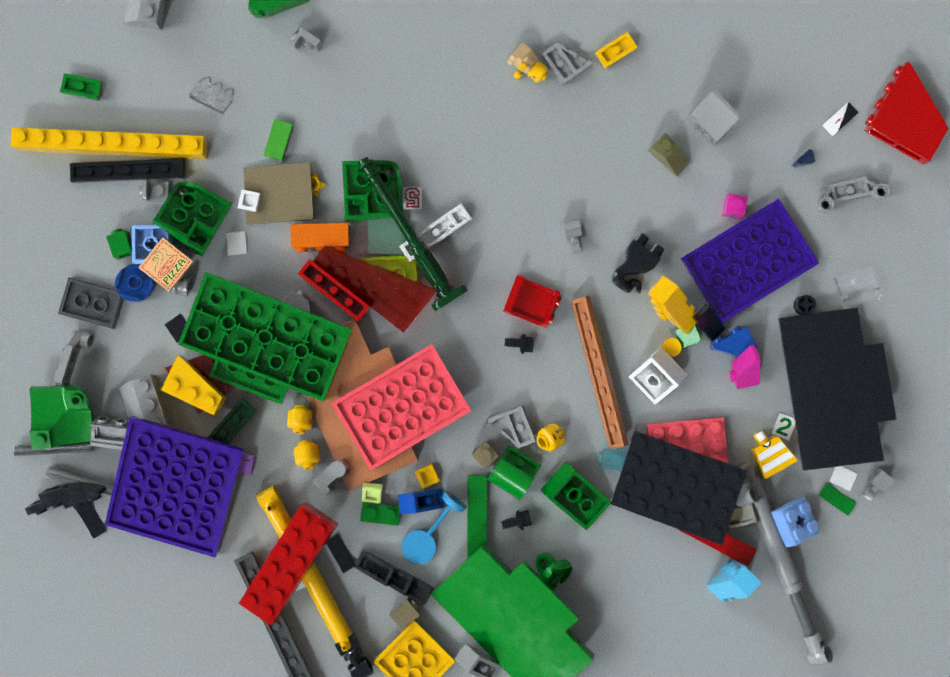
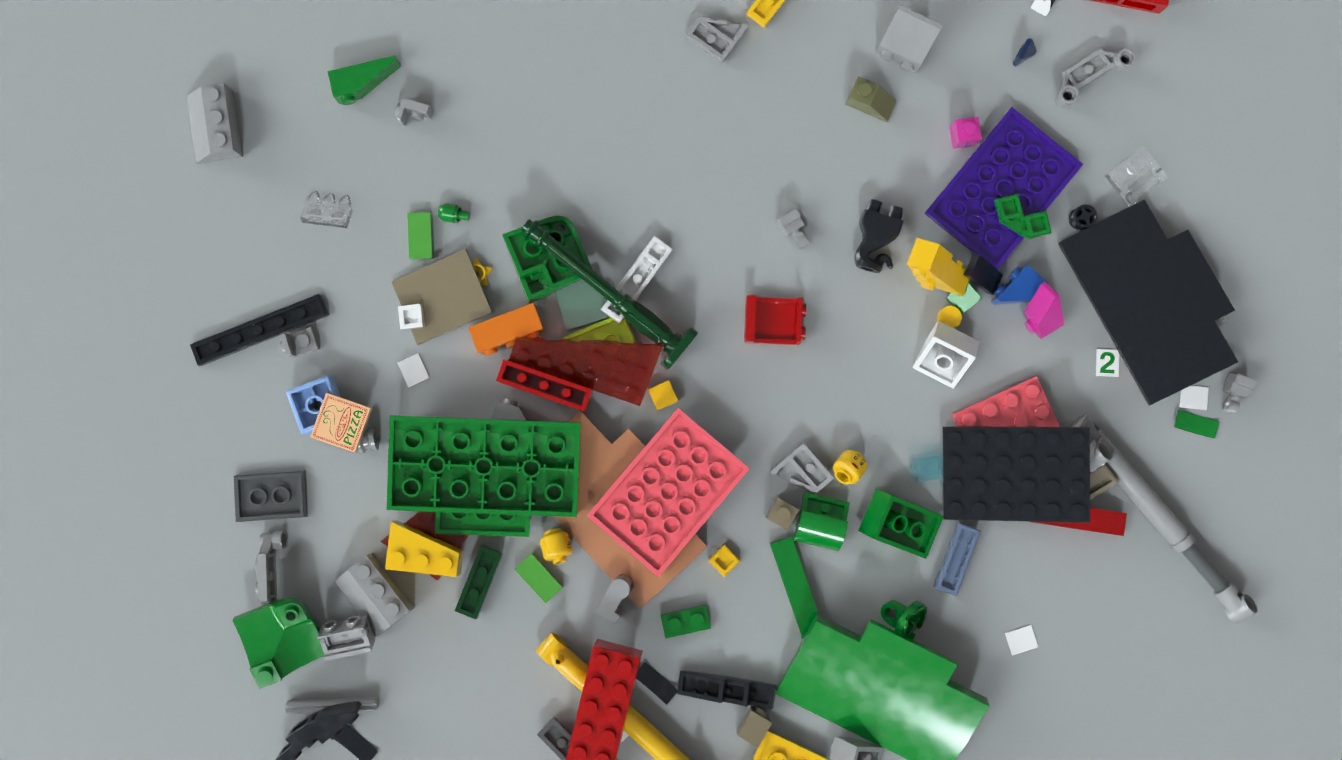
camera: 20 degrees left, 0 degrees up
(77, 447) = (306, 670): light grey axle -> none
(81, 87) = (173, 252): green plate -> none
(109, 143) = (227, 306): yellow brick -> none
(120, 244) = (279, 417): green brick -> none
(134, 284) = (312, 457): blue tile -> none
(173, 486) = (438, 674): dark purple plate -> none
(176, 327) = (377, 490): black sticker -> none
(192, 216) = (352, 356): green slope -> none
(247, 464) = (509, 619): medium lavender tile -> none
(277, 439) = (538, 578): none -> bright green tile
(306, 454) = (578, 584): yellow head -> none
(309, 131) = (452, 213): none -> green cylinder
(372, 493) = (668, 601): yellowish green tile -> none
(412, 198) = (596, 249): white sticker -> none
(420, 501) = (727, 591): blue slope -> none
(420, 545) = (743, 642): dark azure piece -> none
(424, 330) = (663, 395): none -> yellow tile
(522, 520) = (848, 572): black piece -> none
(525, 343) = (783, 370): black piece -> none
(526, 62) = (672, 50): piece -> none
(599, 372) = (879, 374): nougat plate -> none
(610, 539) = (957, 559): none -> sand blue plate
(639, 620) = (1021, 640): none -> white sticker
(733, 581) = (1116, 558): medium azure wedge -> none
(747, 284) = (1011, 215): none -> green tile
(771, 455) = (1105, 400): yellow torso -> none
(795, 522) = (1160, 466): light blue brick -> none

